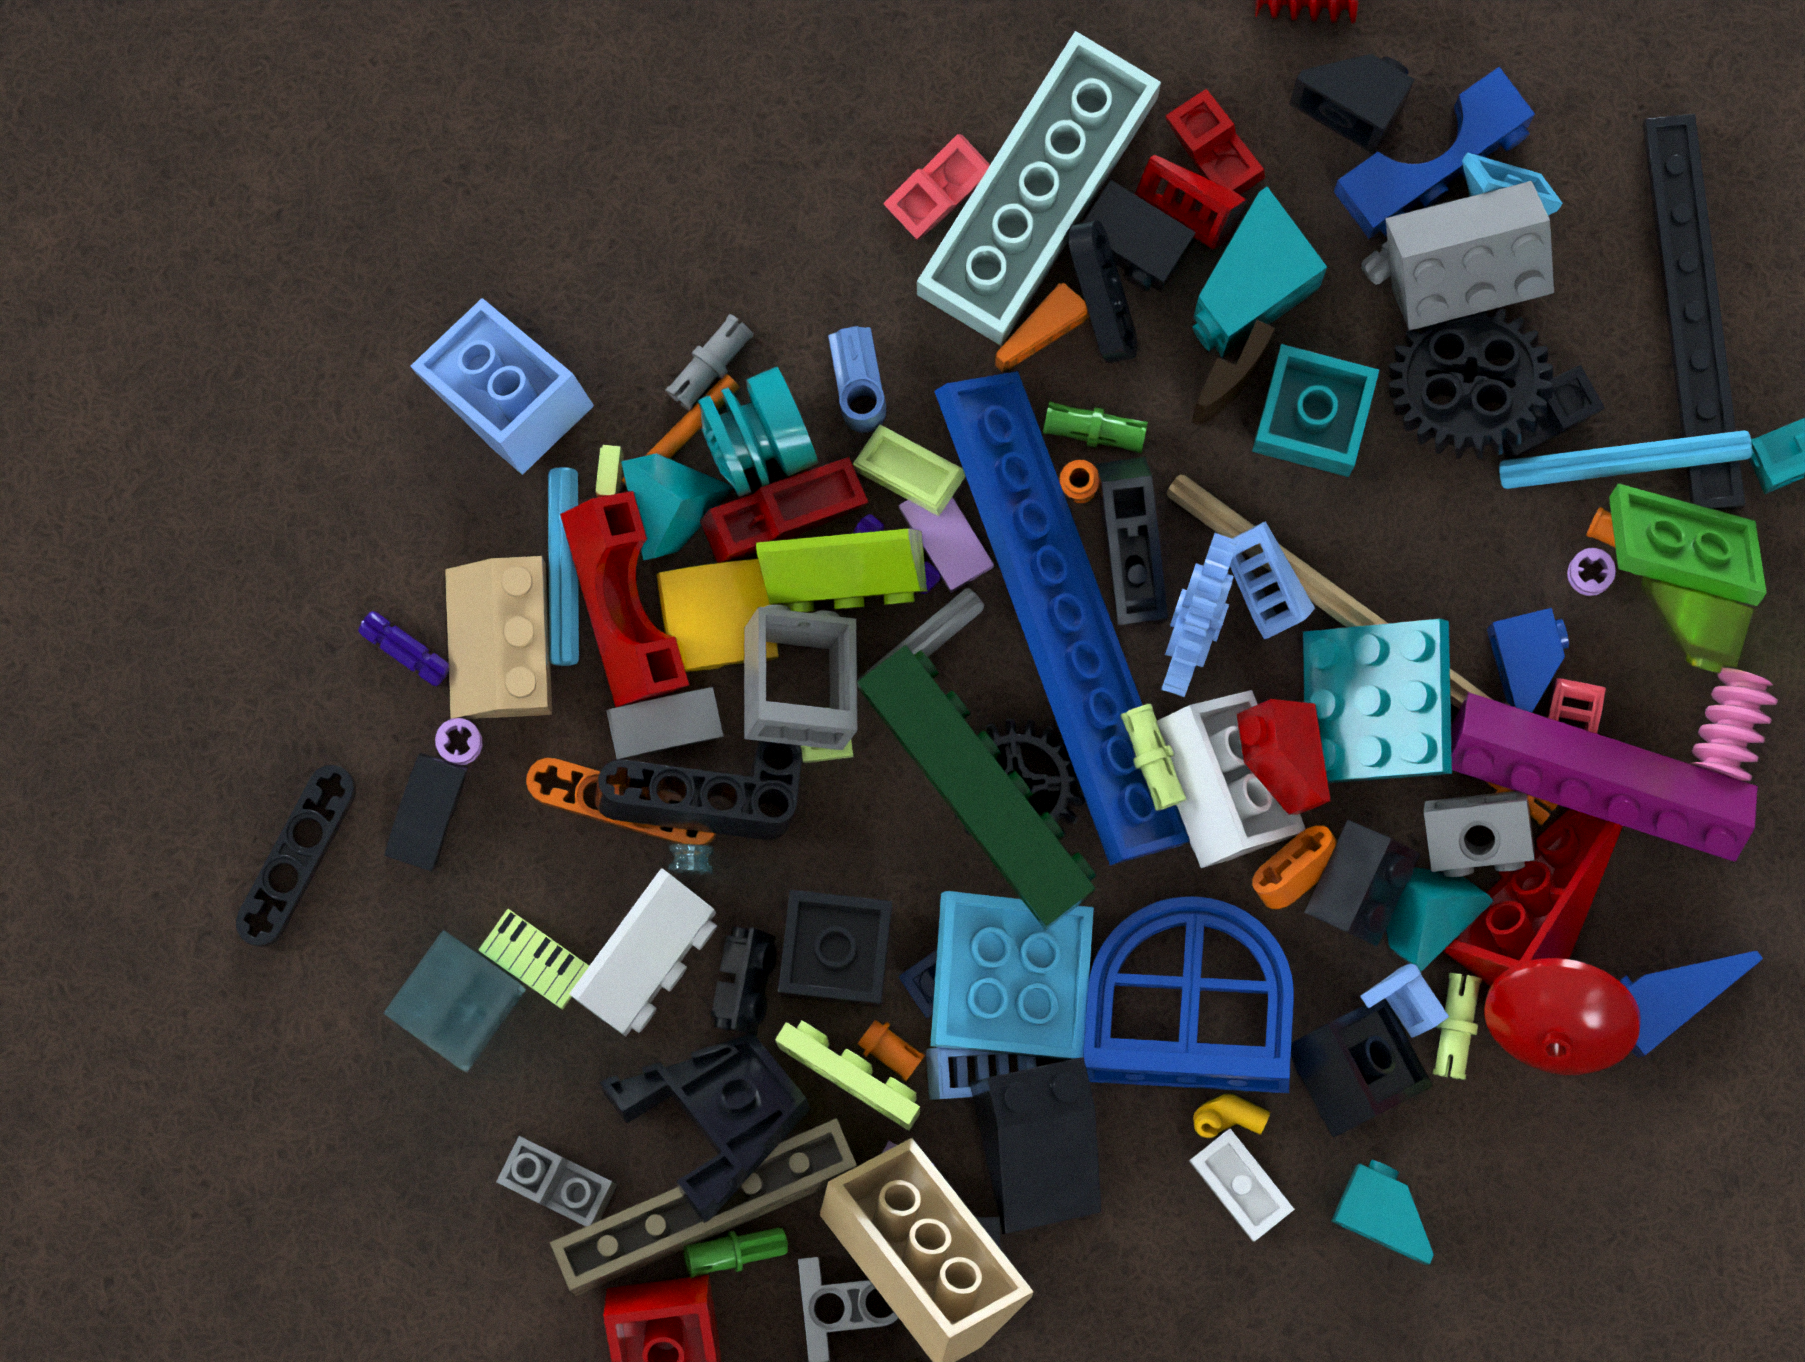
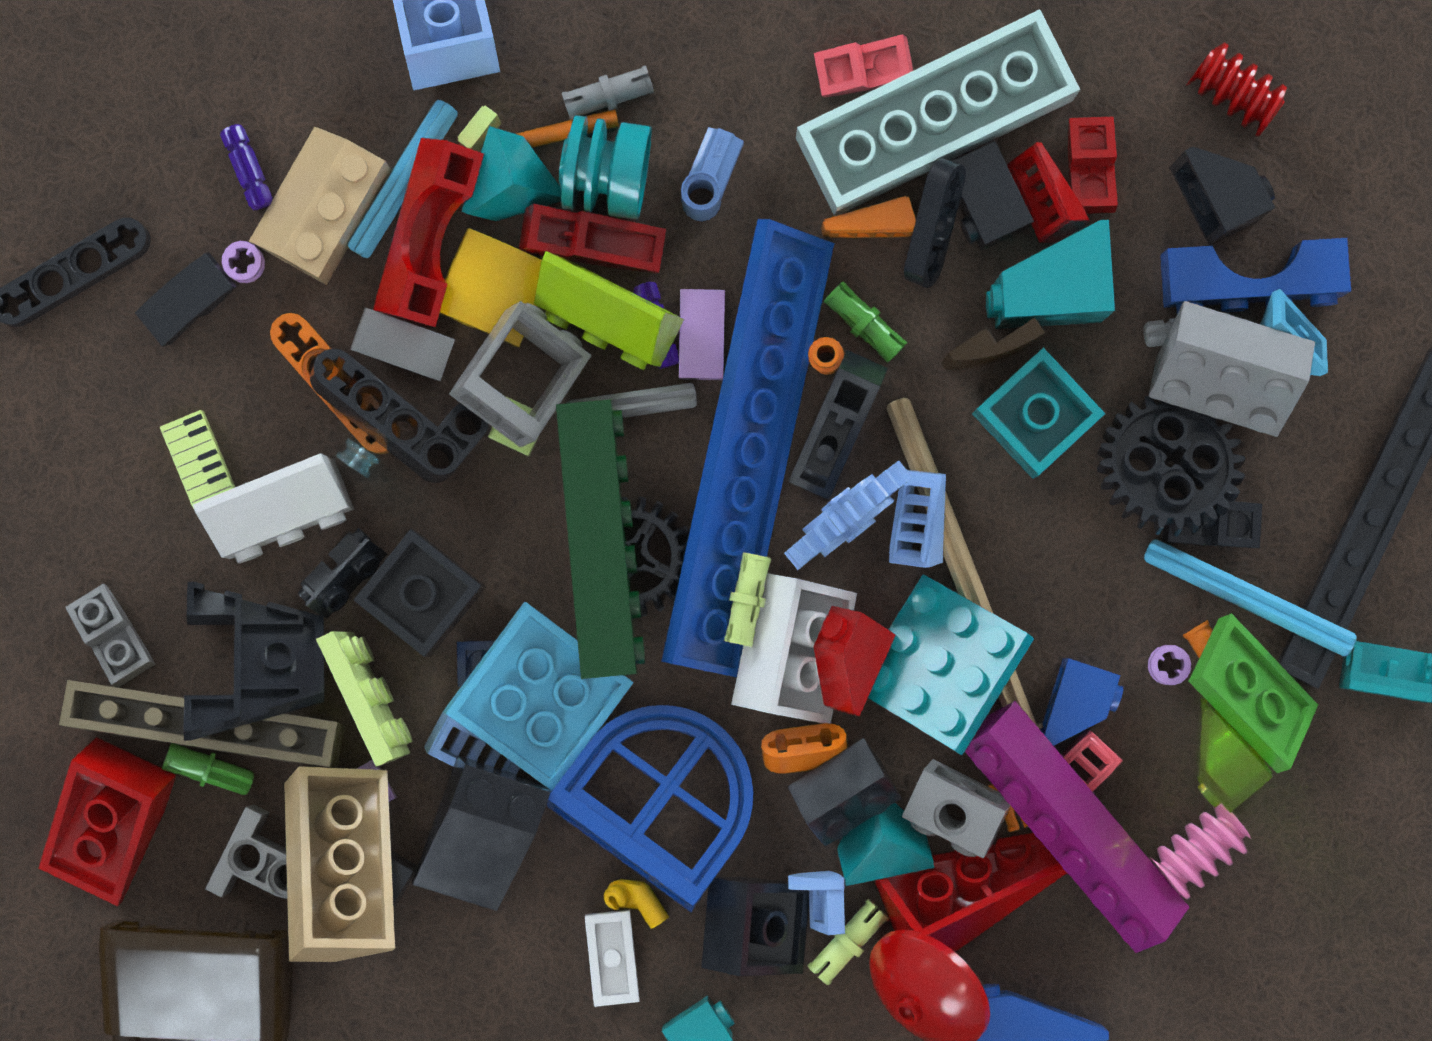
camera: 35 degrees right, 5 degrees up
(455, 1001) = (116, 455): clear light blue slope -> none
(890, 1049) = (416, 692): orange pin -> none
(909, 470) = (704, 267): yellowish green tile -> none

